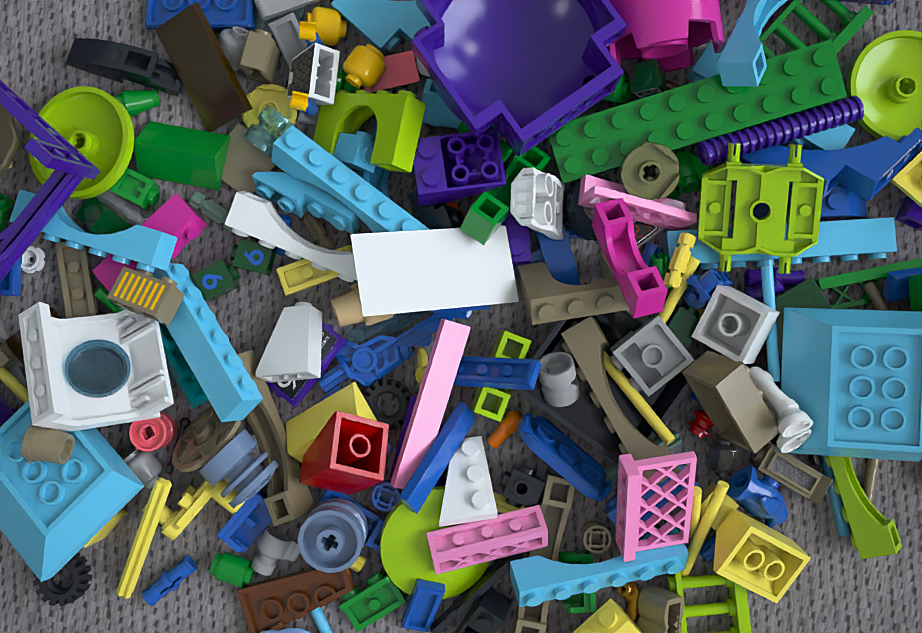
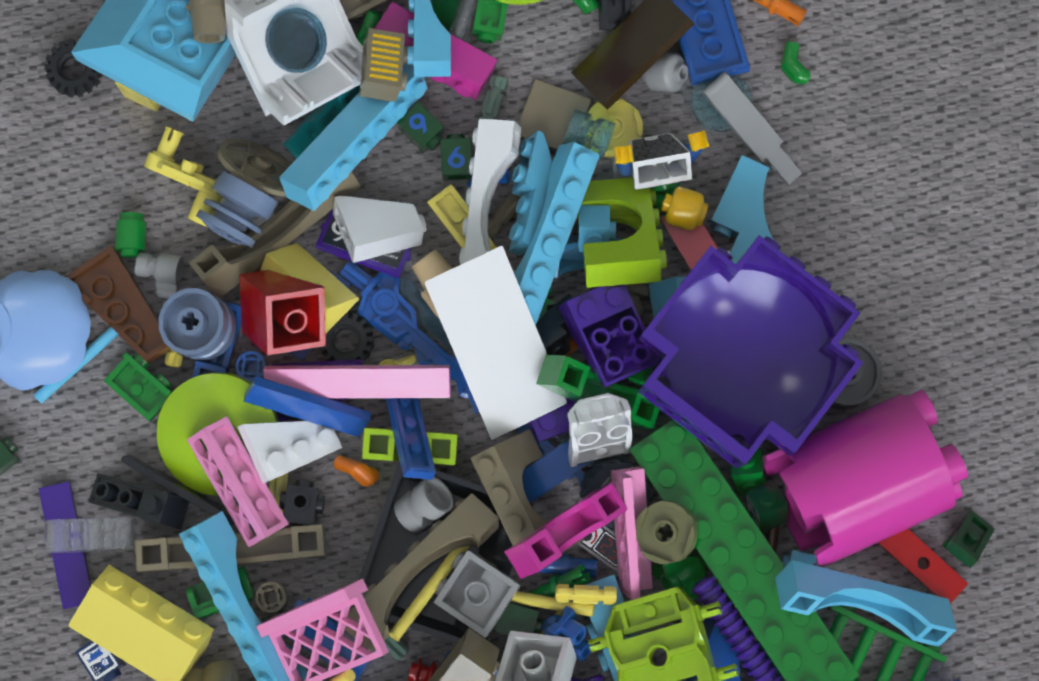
camera: 75 degrees right, 5 degrees down
(143, 537) = (138, 136): light yellow axle -> none
(144, 466) = (211, 114): light grey head -> none
(153, 433) = (246, 113): coral wheel -> none
(169, 580) = (101, 175): blue pin -> none
(181, 155) = (539, 52): green slope -> none
(184, 423) = (265, 140): black hinge -> none
(246, 523) = (182, 235): blue hinge -> none
(259, 56) = (663, 101): dark tan brick -> none
(287, 36) = (695, 119): light grey tile -> none
(328, 24) = (719, 157): yellow head -> none
(422, 605) = (150, 438): blue tile -> none
(564, 456) = (346, 537): blue tile -> none
(630, 593) = (225, 651): pearl gold arm -> none

